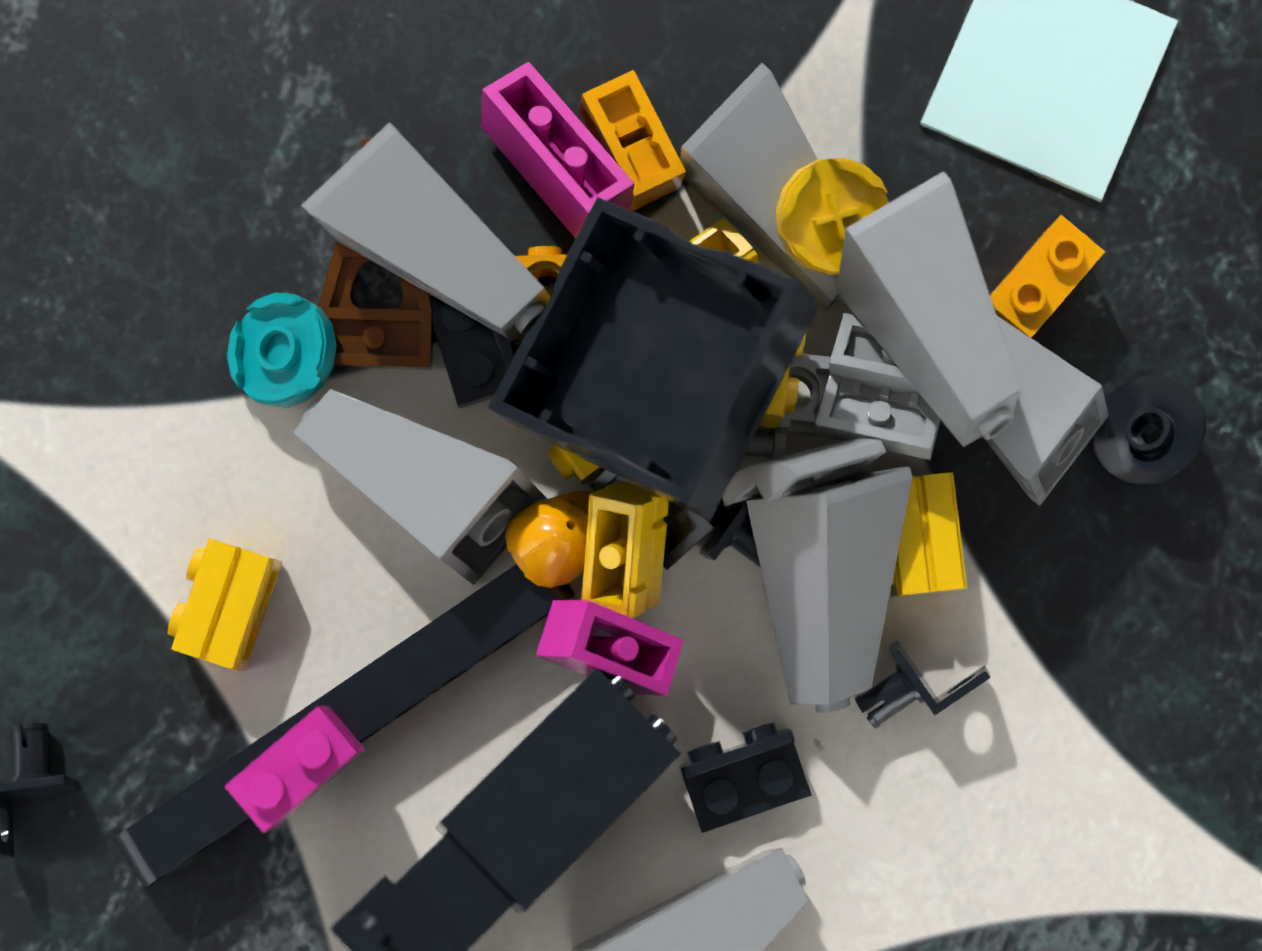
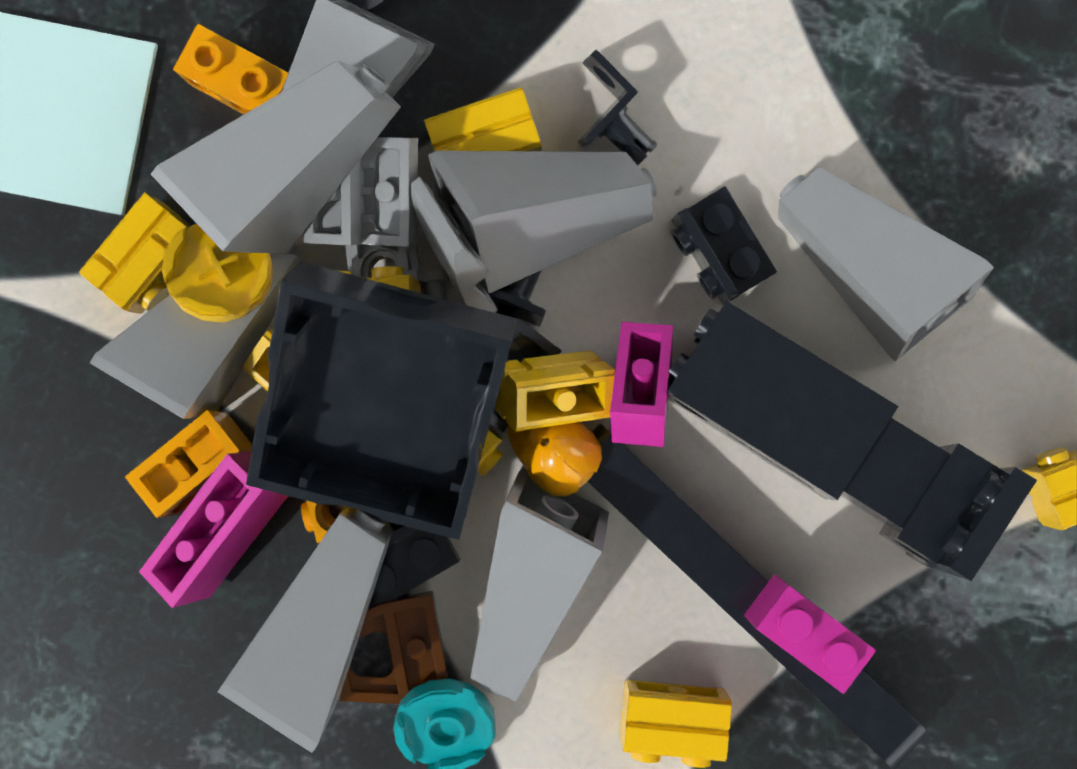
camera: 100 degrees left, 5 degrees up
(867, 127) = (131, 257): none -> yellow brick

